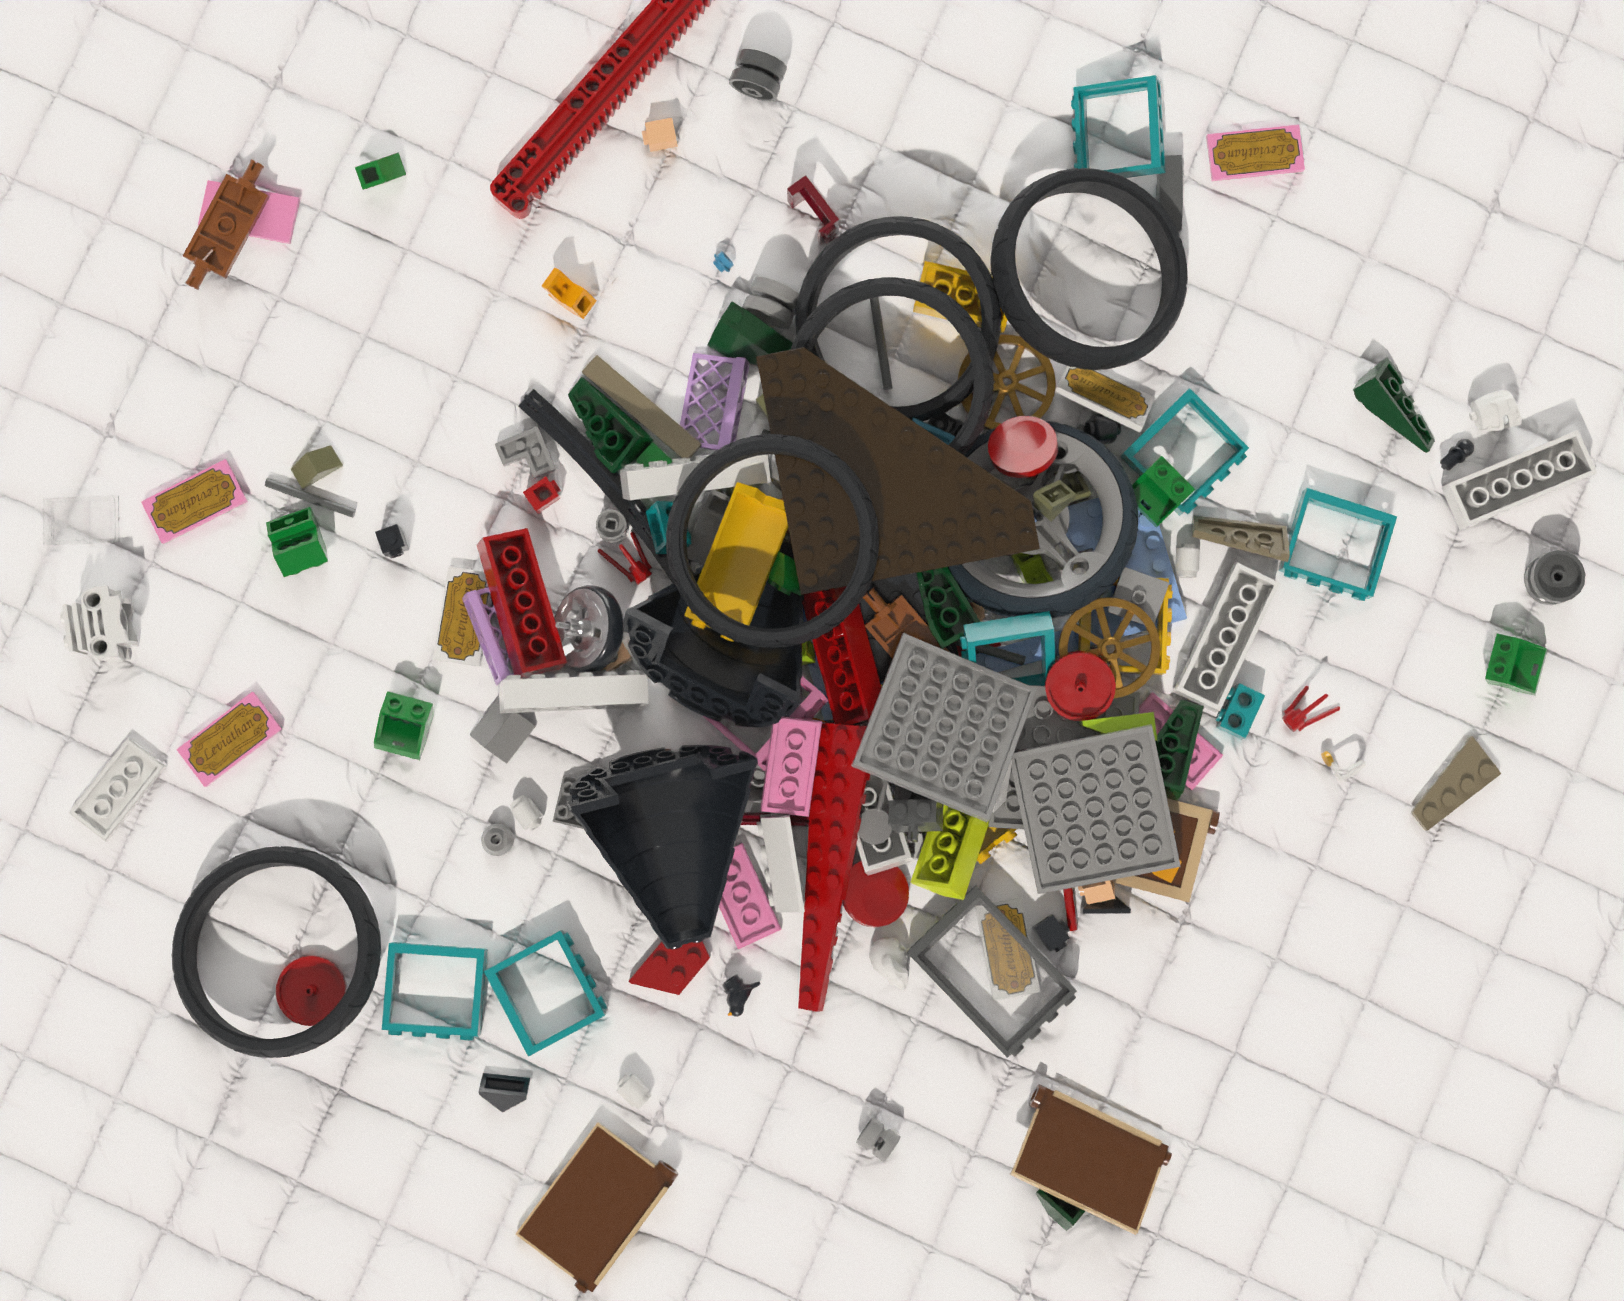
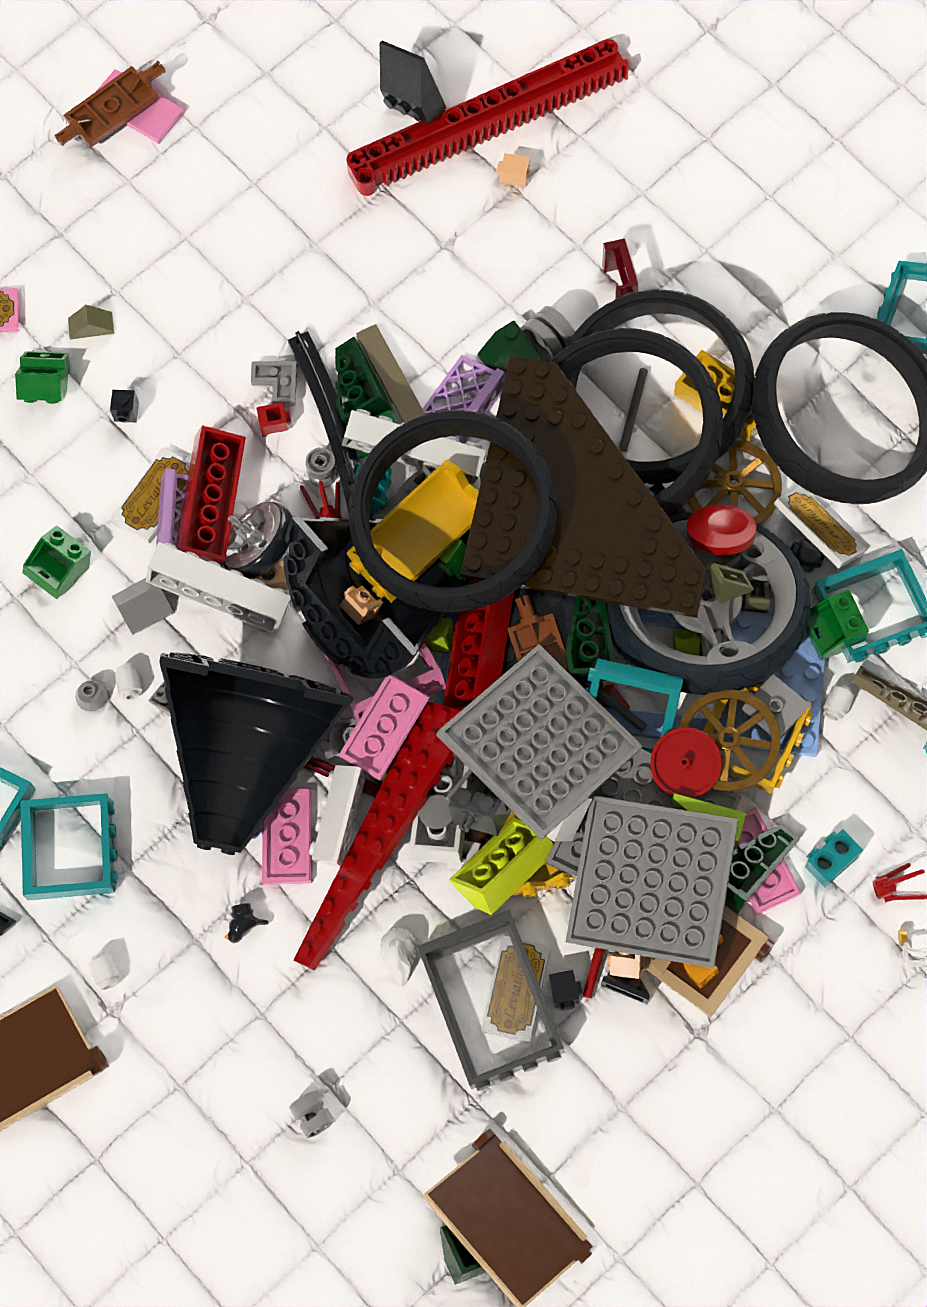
camera: 30 degrees right, 15 degrees down
(309, 497) = (74, 348): dark grey bar -> none
(380, 171) = (260, 111): green slope -> none
(520, 90) = (408, 84): none -> black slope
(568, 294) = (373, 264): light orange brick -> none
(671, 968) = (195, 872): red wing -> none
(715, 655) = (360, 604): none -> light nougat brick
(723, 262) = (522, 291): dark azure plate -> none
(757, 74) = (620, 150): dark grey wheel -> none
(876, 898) = (410, 885): red piece -> none
(1226, 637) = (846, 783): white brick -> none

